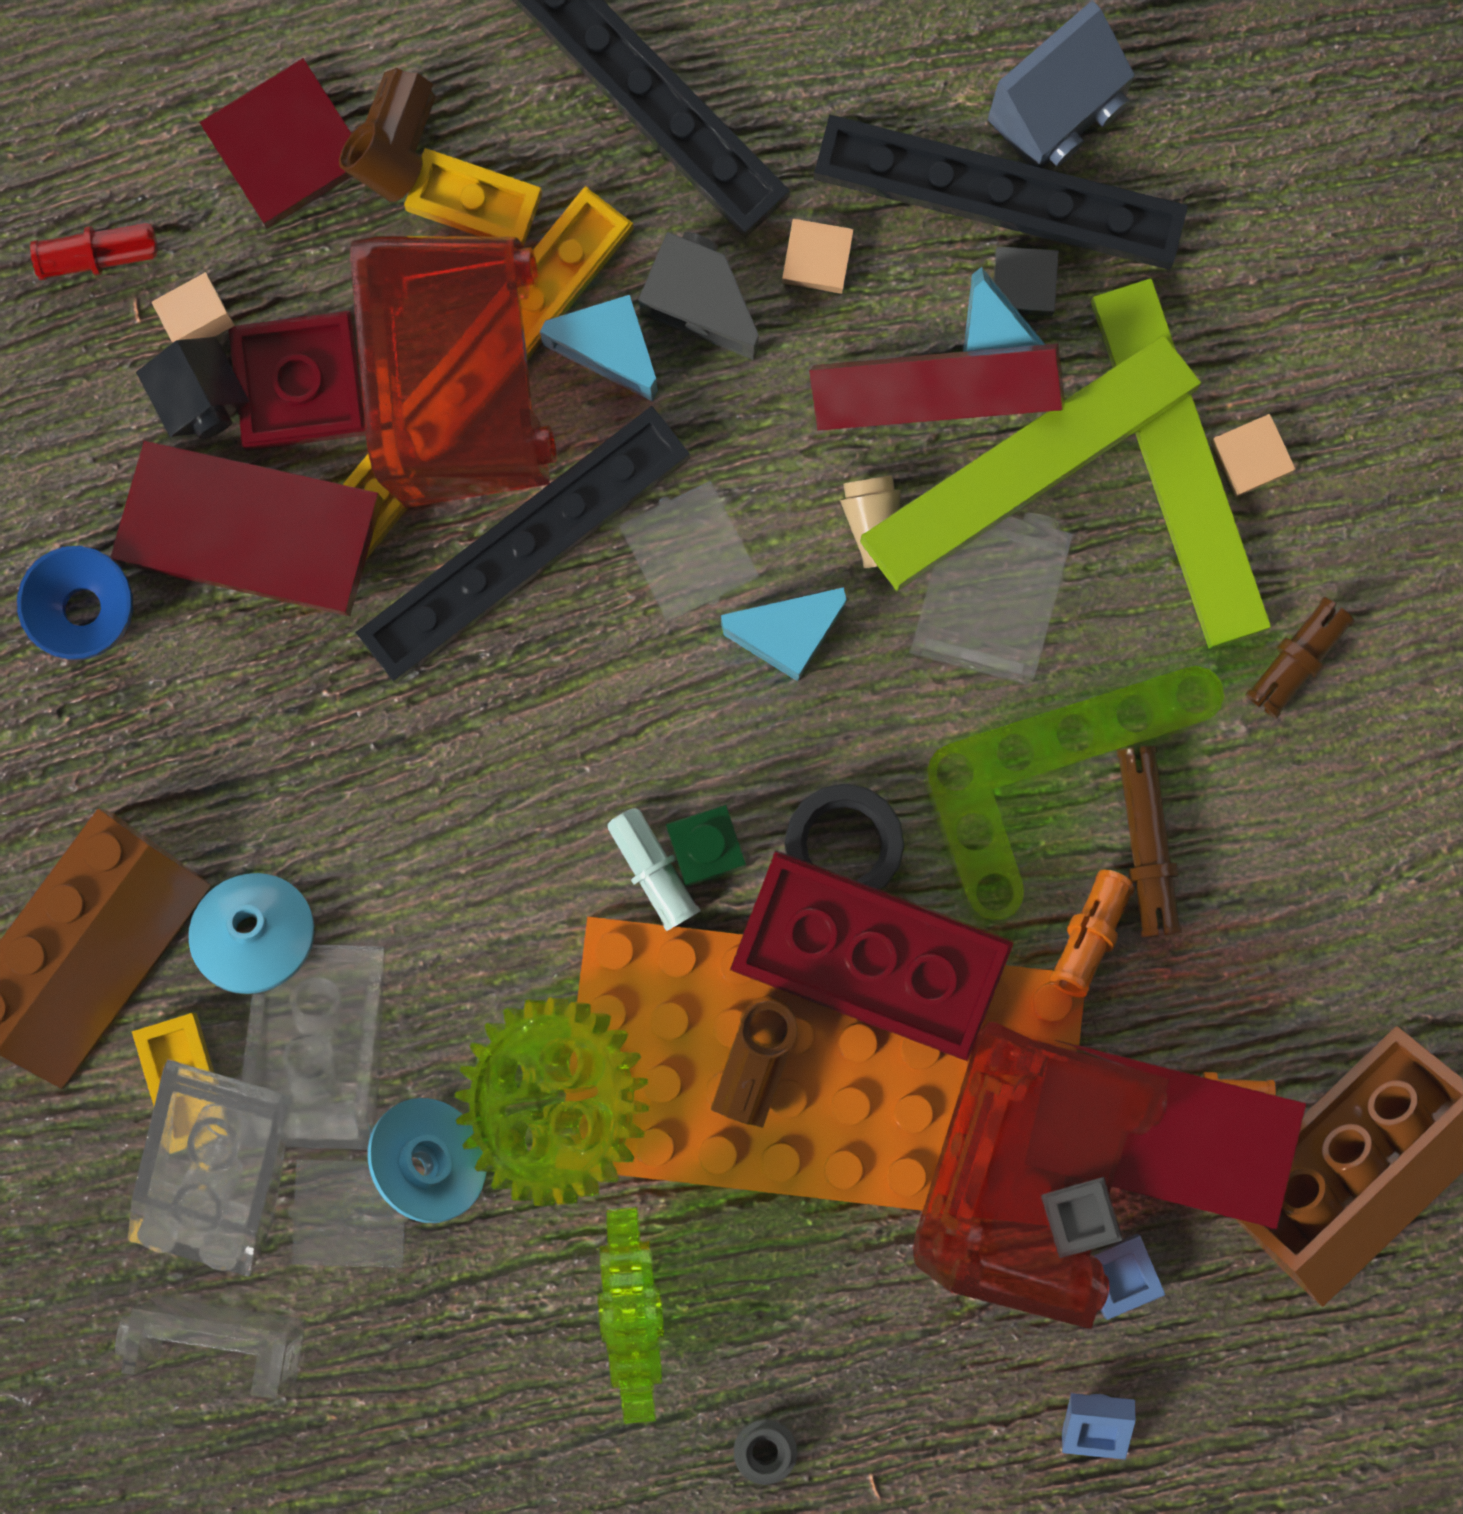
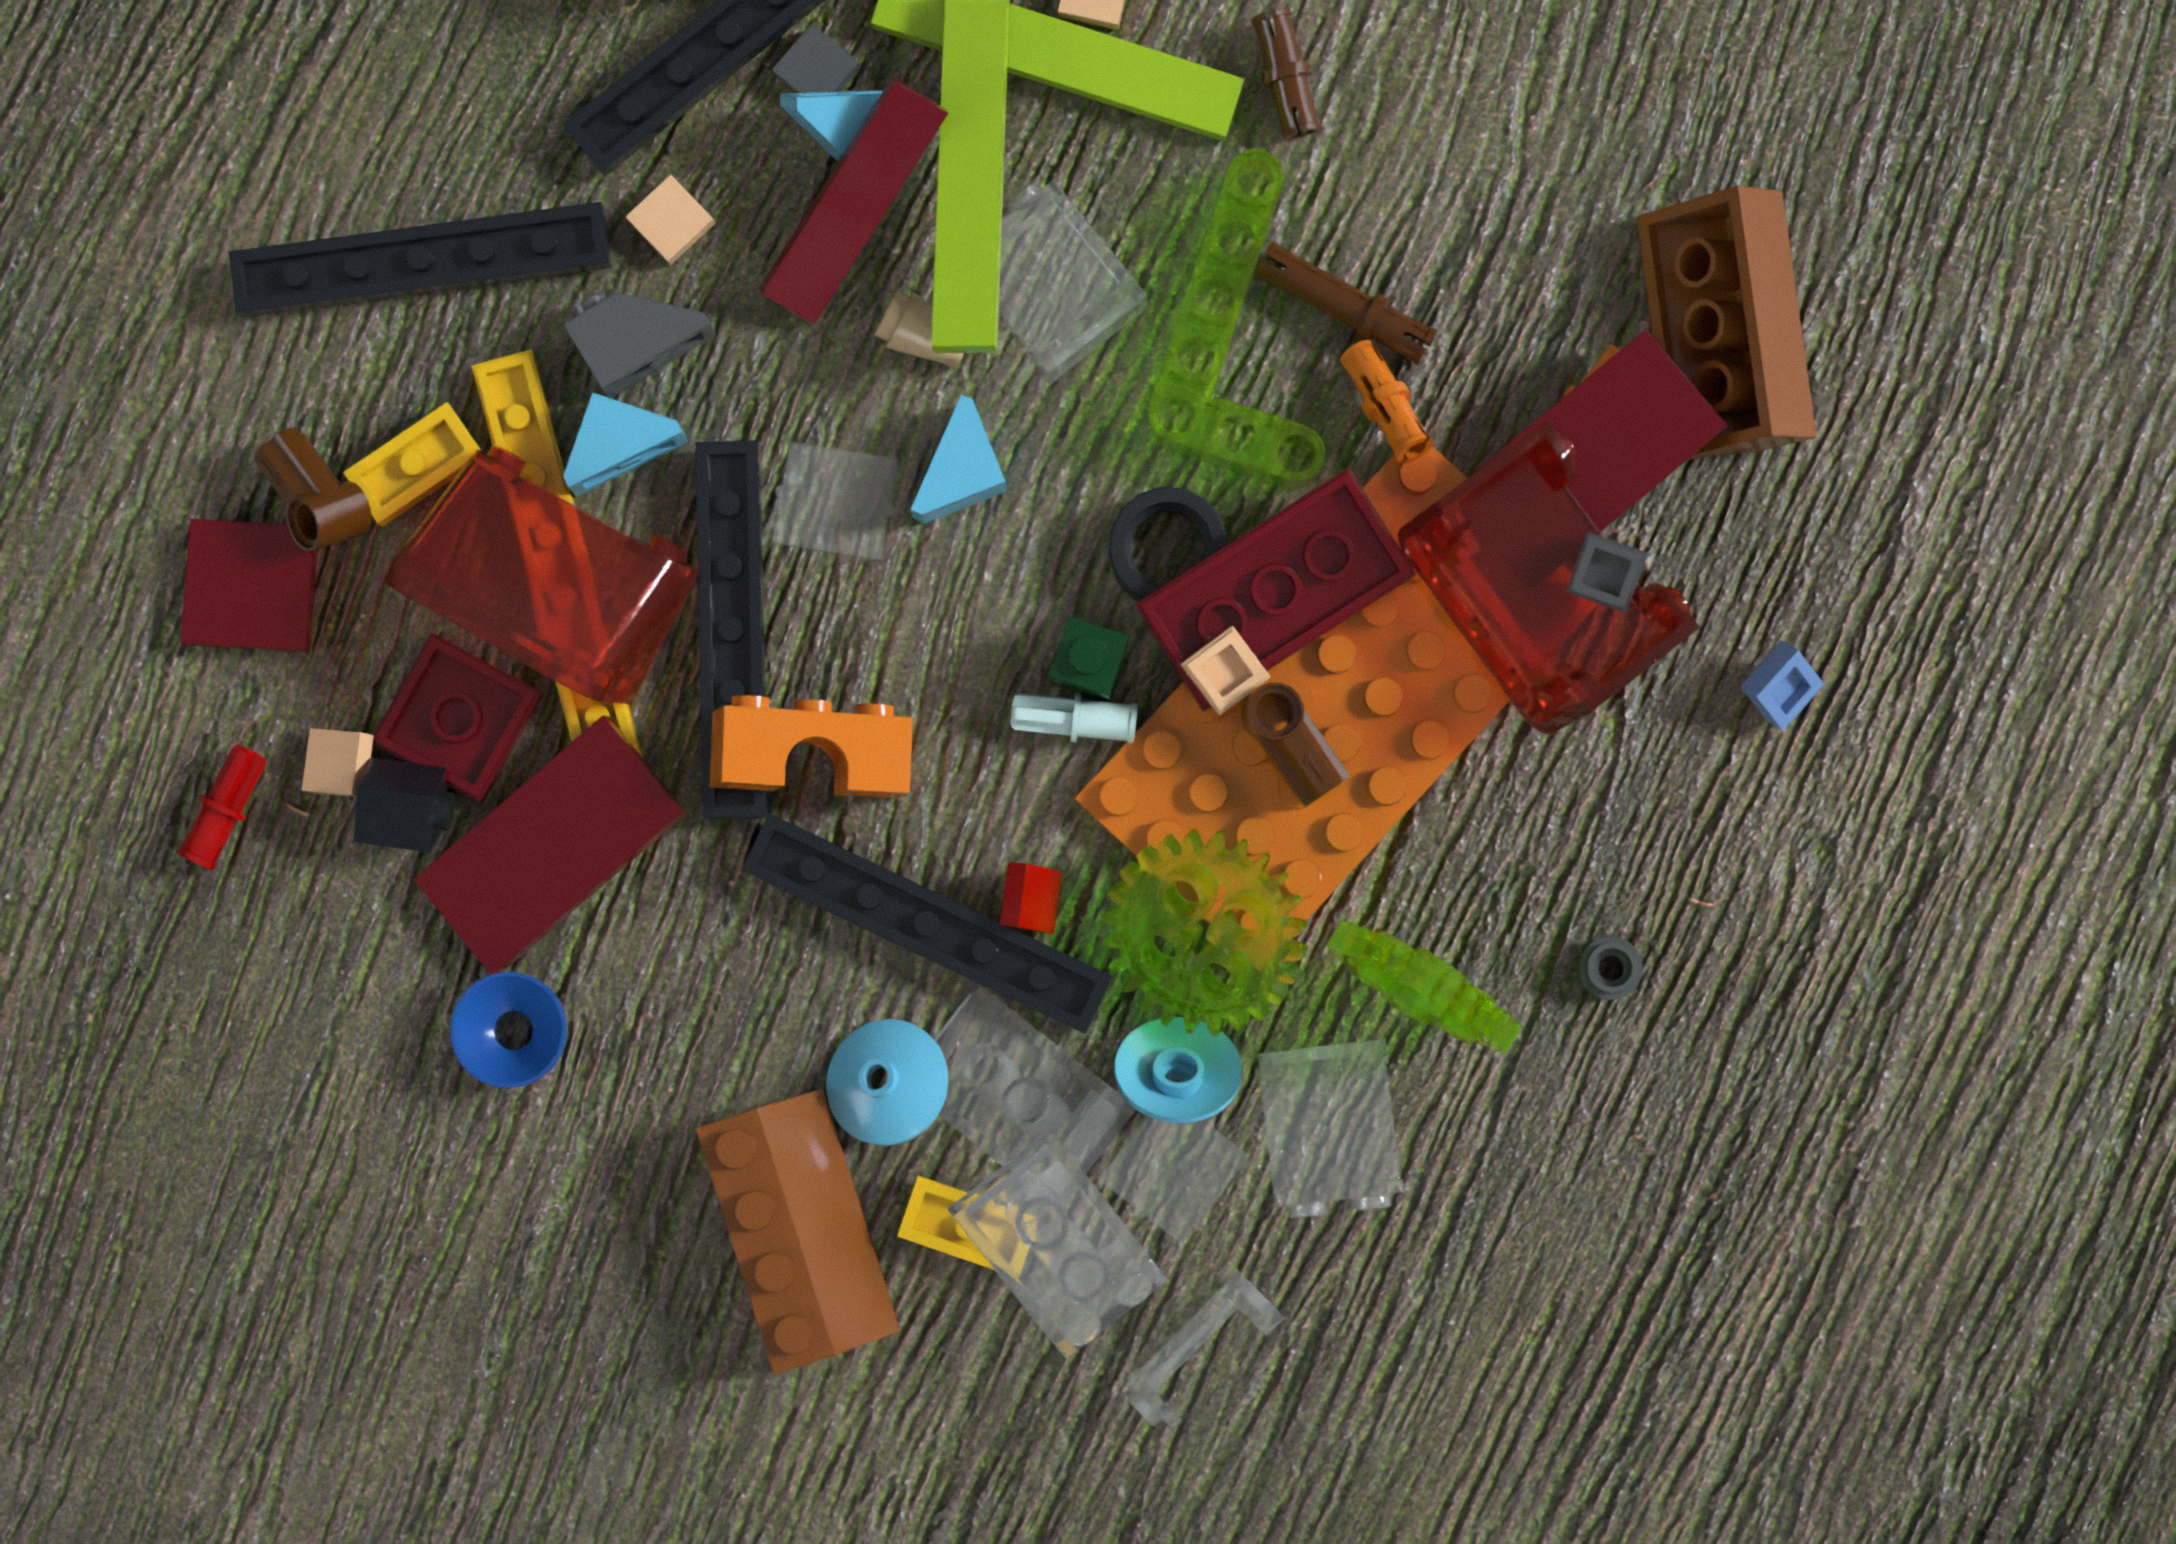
camera: 50 degrees left, 0 degrees up
(401, 872) = (927, 923): none -> black plate
(470, 1317) = (1329, 1127): none -> clear panel
(480, 940) = (1030, 897): none -> red tile
(504, 721) = (865, 748): none -> orange arch
(774, 963) = (1225, 670): none -> light nougat tile
(1129, 1275) = (1684, 570): medium blue plate -> none

